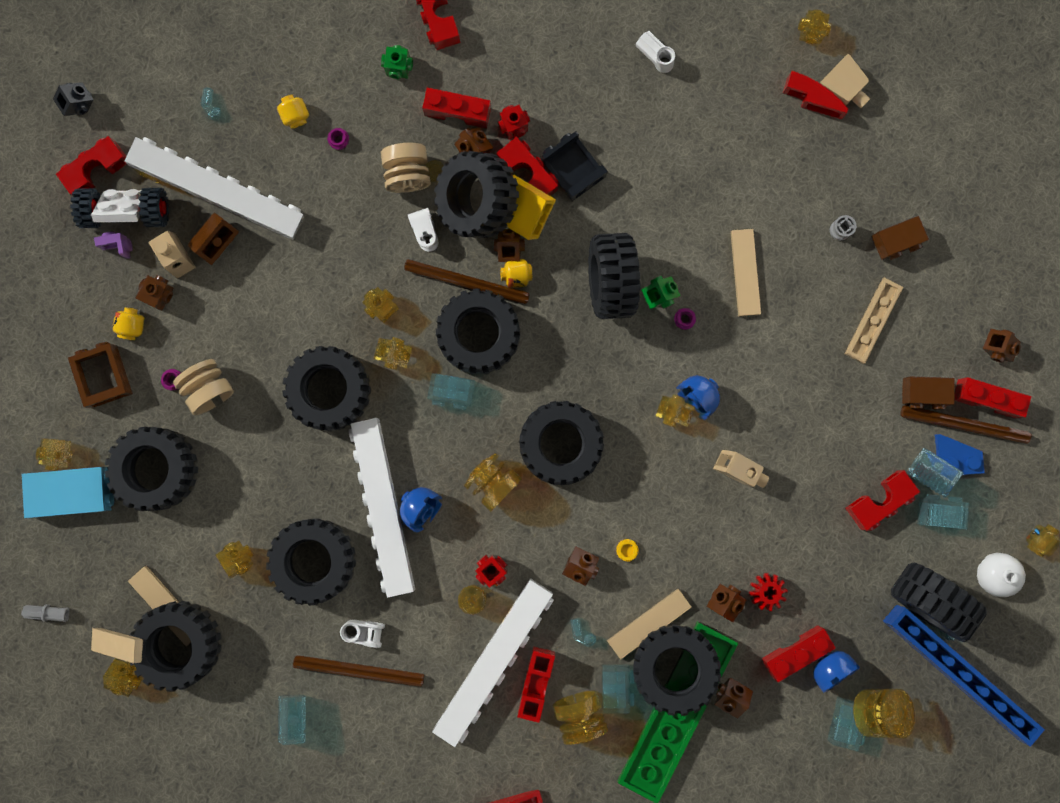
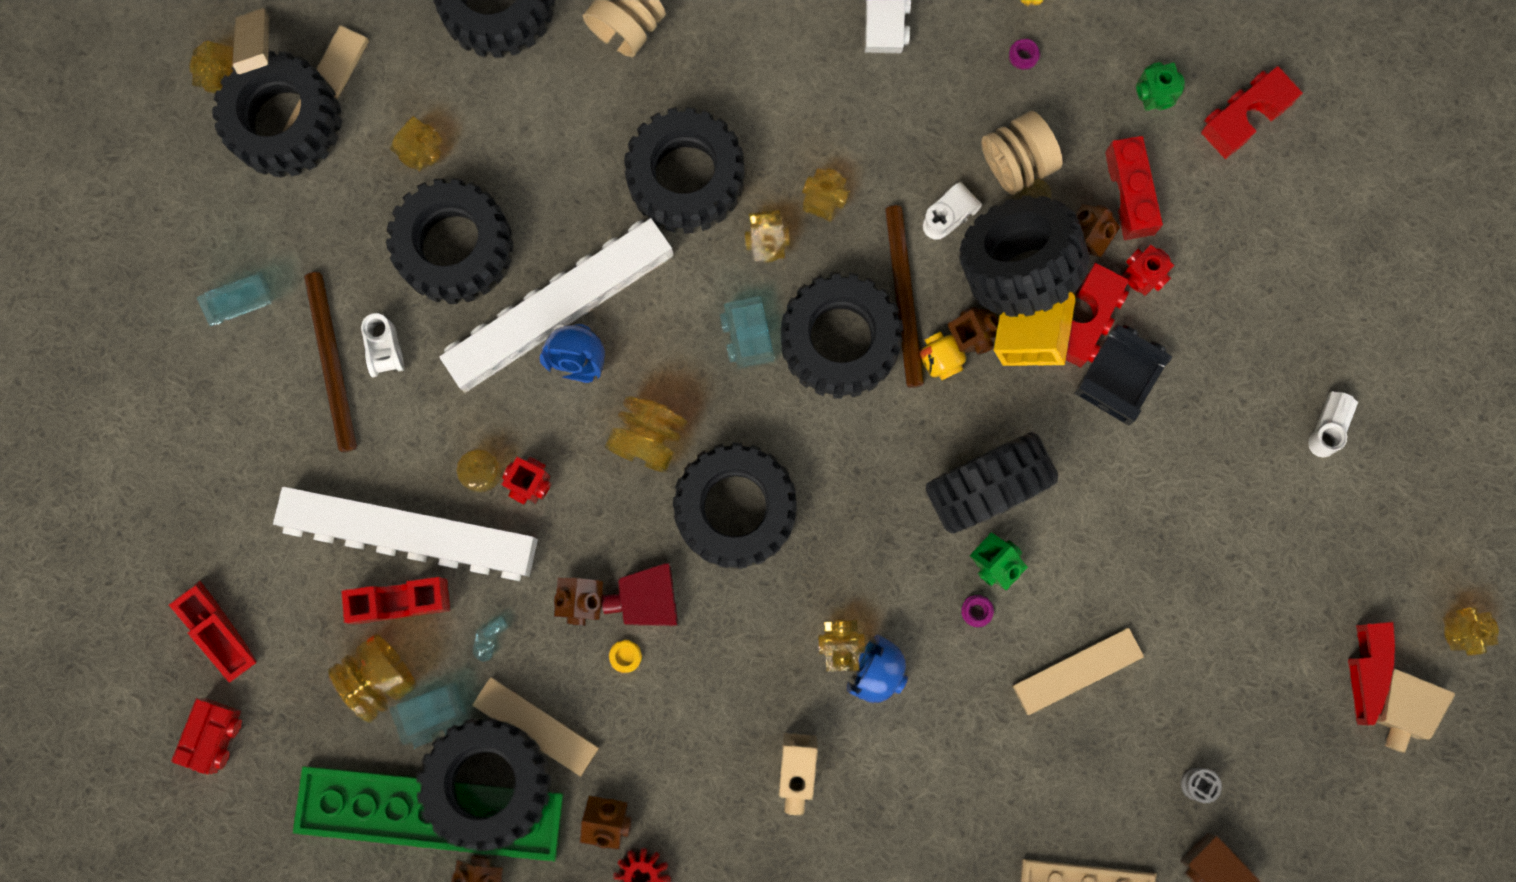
camera: 70 degrees right, 5 degrees down
(596, 523) = (645, 598): none -> dark red torso

